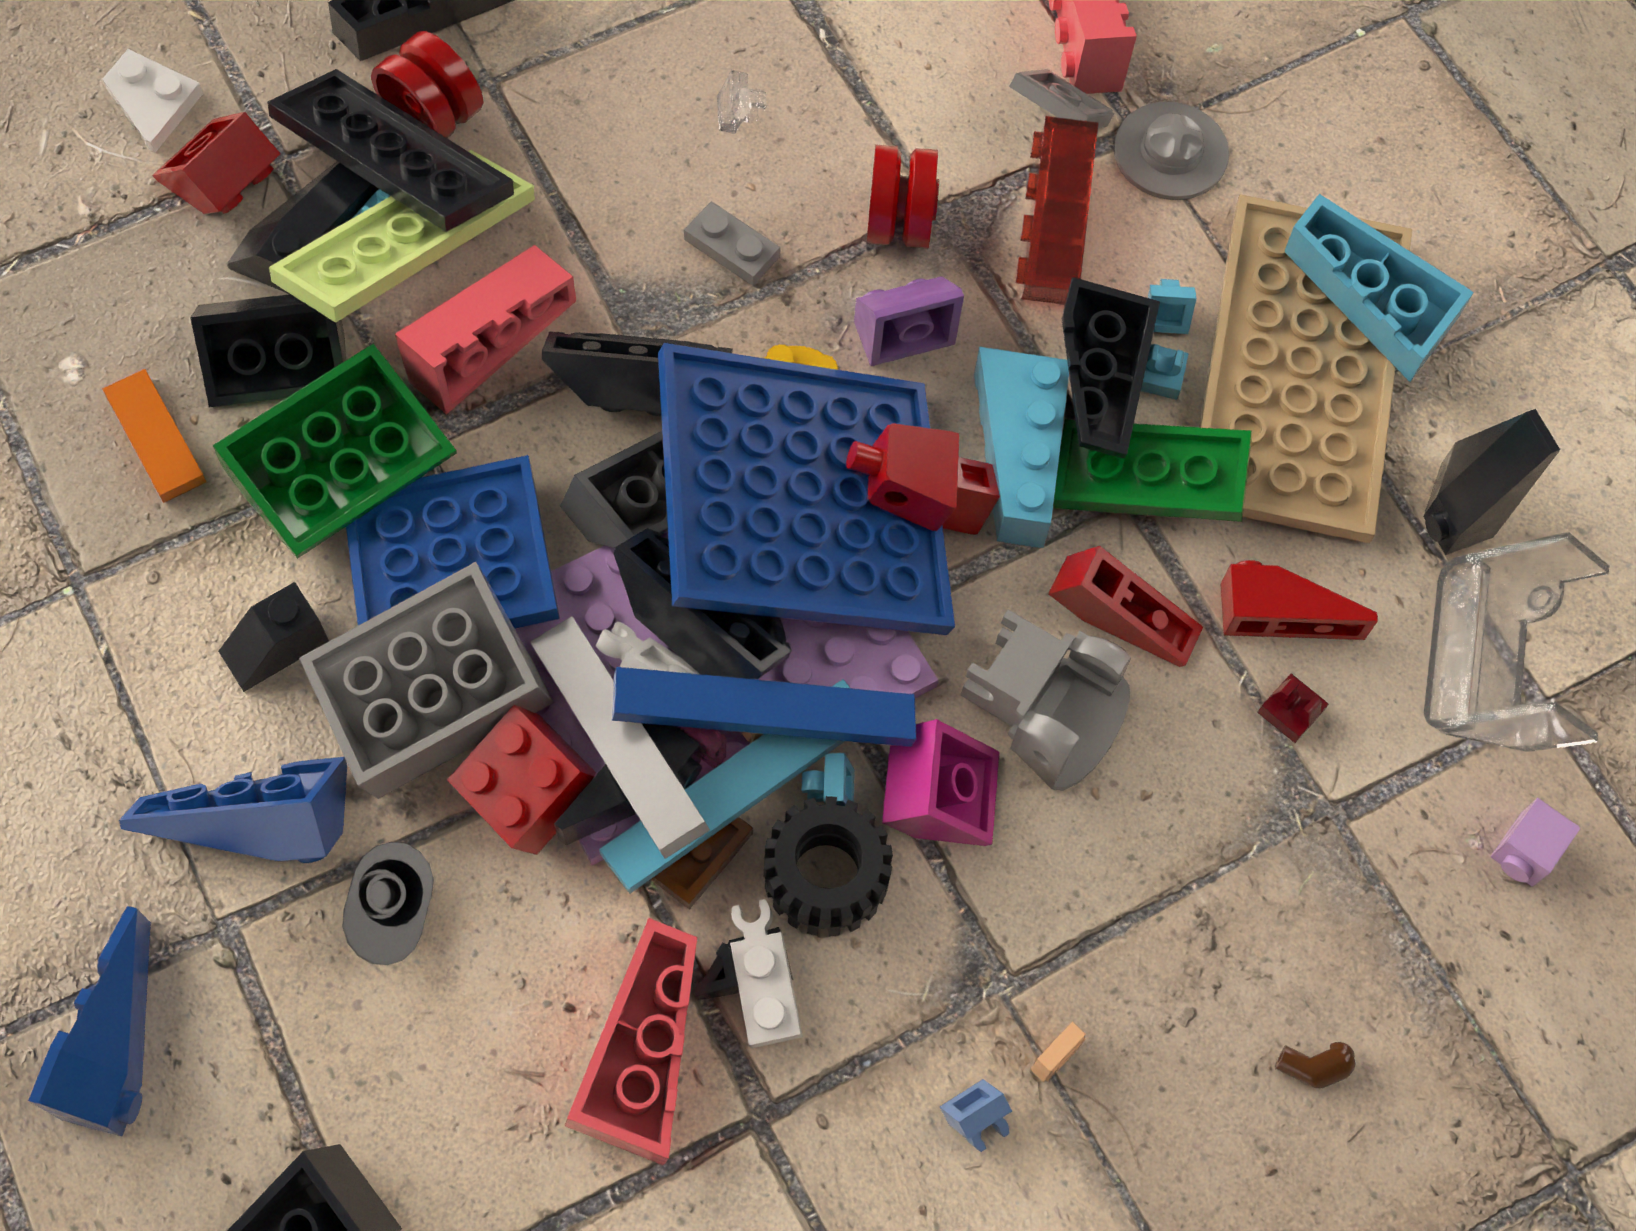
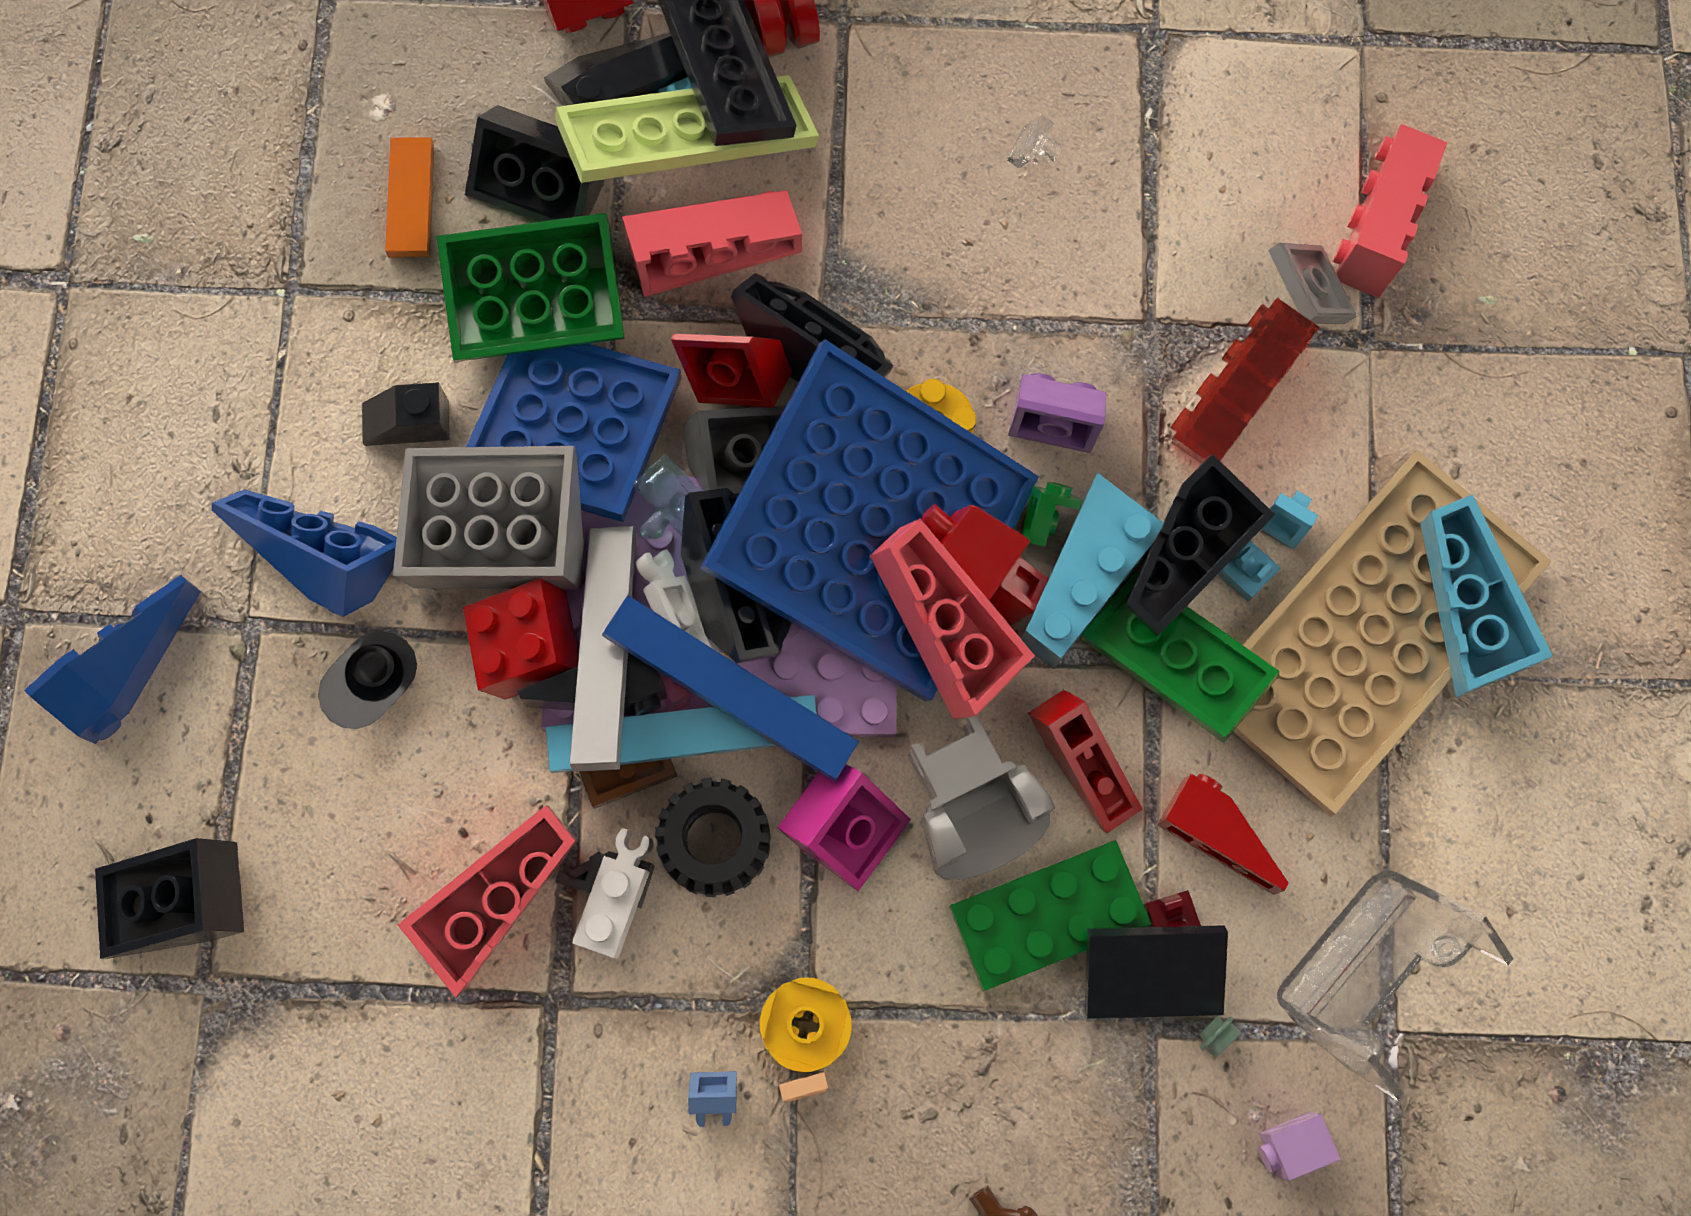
camera: 30 degrees right, 10 degrees up
(582, 422) = (733, 368): none -> red slope
(592, 568) = (665, 489): none -> clear light blue plate
(732, 243) = (956, 267): light grey plate -> none
(834, 781) = (760, 775): medium azure tile -> none
(903, 197) = (1111, 301): red wheel -> none
(930, 537) = (950, 620): none -> coral wedge
(947, 404) = (1041, 516): none -> green bracket
(1007, 1020) = (829, 1012): none -> yellow plate
(1171, 150) = (1387, 375): light grey hat -> none
(1180, 768) = (1047, 914): none -> green plate
(1311, 759) = (1155, 971): none -> black tile
(1401, 787) = (1218, 1035): none -> sand green plate
(1487, 480) = (1452, 825): black wedge -> none

